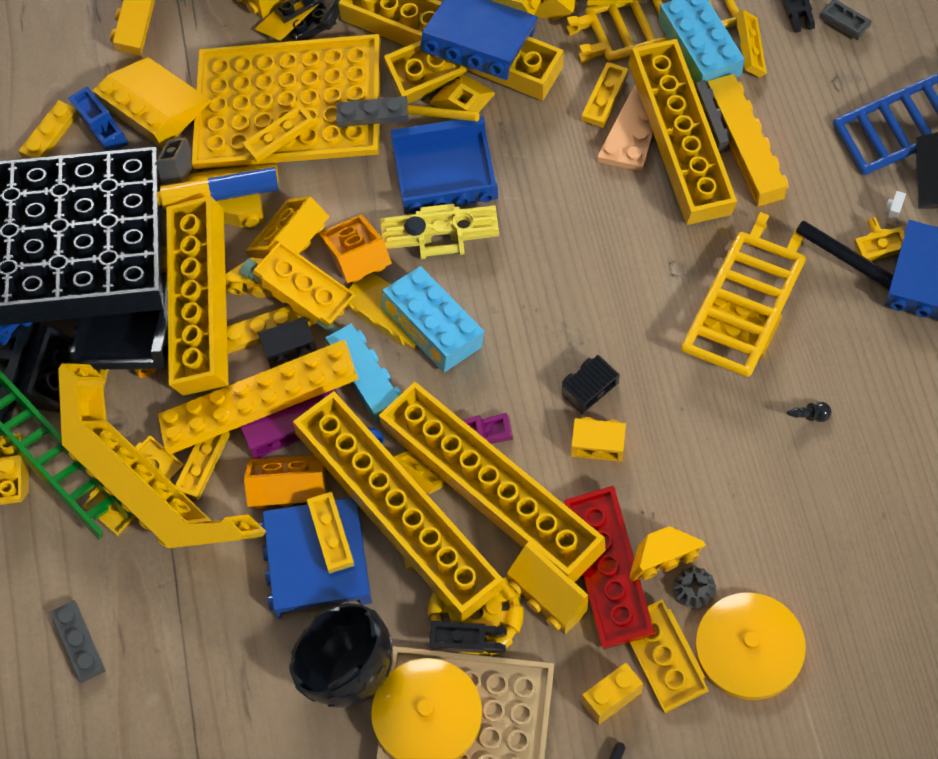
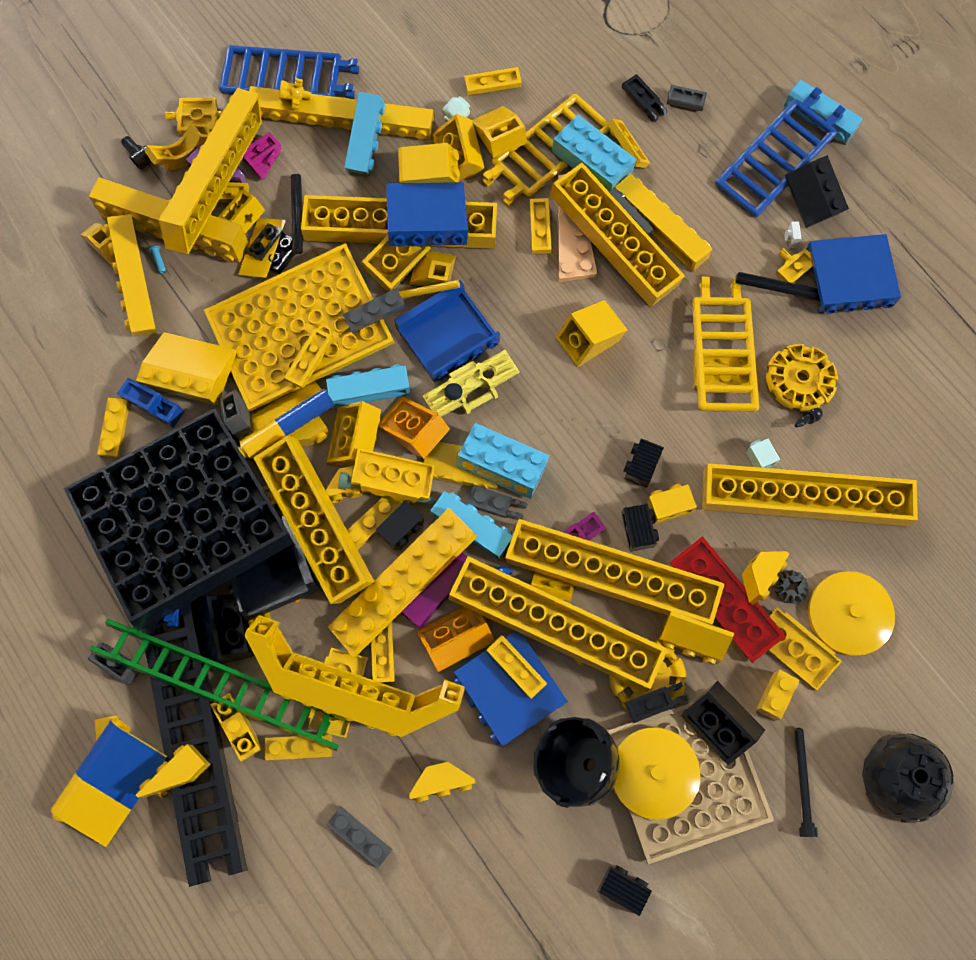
camera: 30 degrees left, 10 degrees up
(60, 523) = (295, 748): none -> yellow plate
(190, 619) = (440, 780): none -> yellow slope
(330, 188) = (369, 386): none -> medium azure brick
(403, 361) = (495, 503): none -> dark grey hinge
(530, 691) = (723, 723): none -> black slope
(548, 450) = (639, 527): none -> black brick
(602, 223) = (590, 332): none -> yellow slope
(732, 430) = (762, 454): none -> light aqua brick
(764, 493) = (809, 495): none -> yellow brick
(825, 379) = (793, 385): none -> yellow plate

